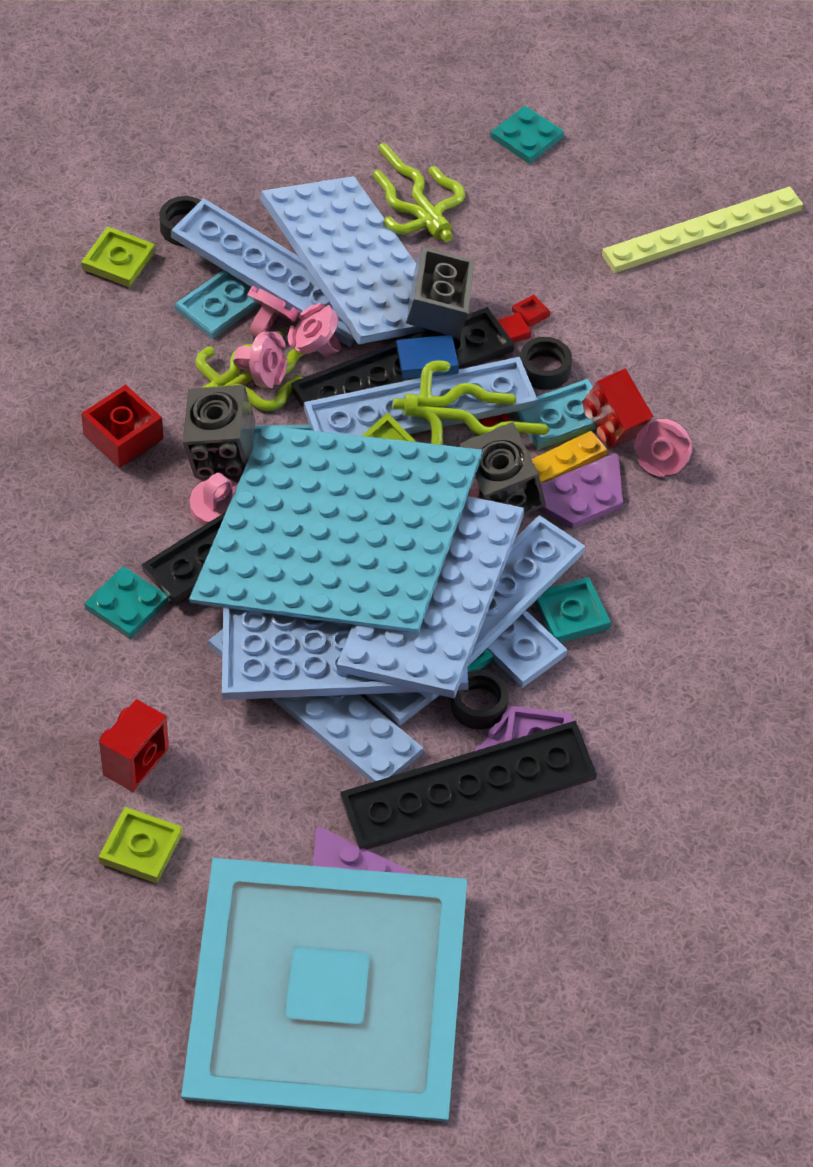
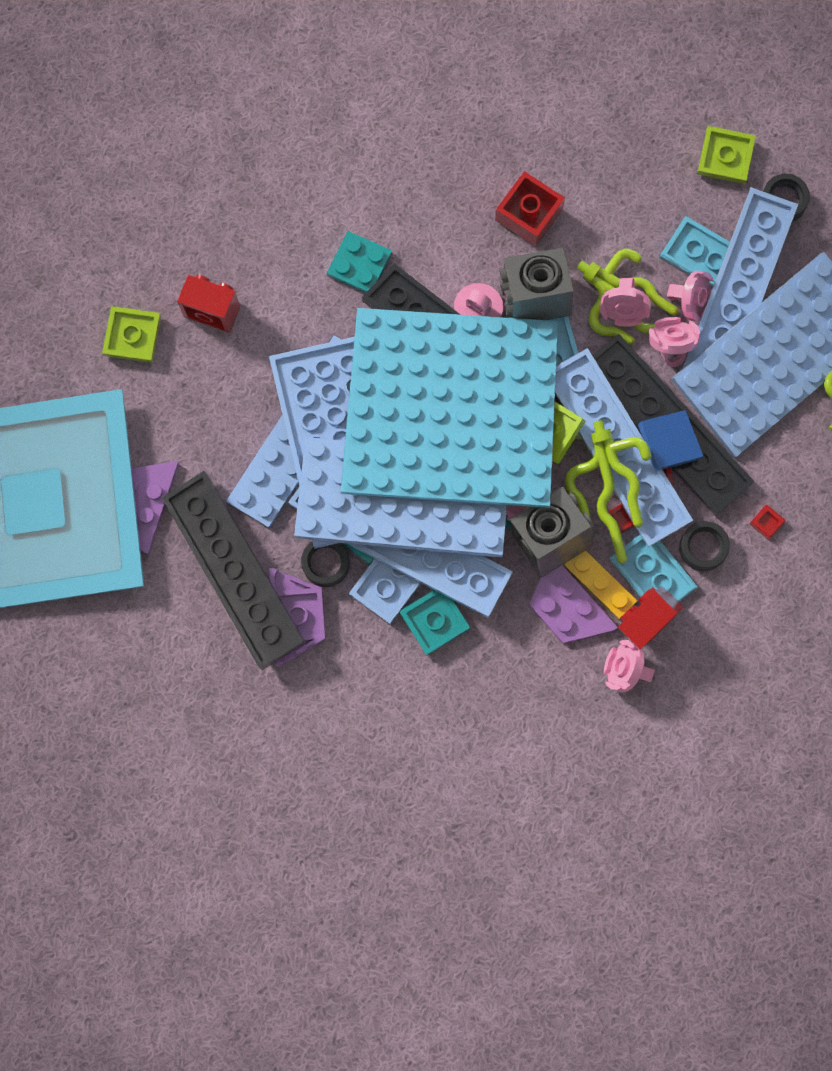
camera: 85 degrees right, 25 degrees up
(440, 292) = (743, 434): dark grey brick -> none
(515, 327) = (741, 510): red tile -> none

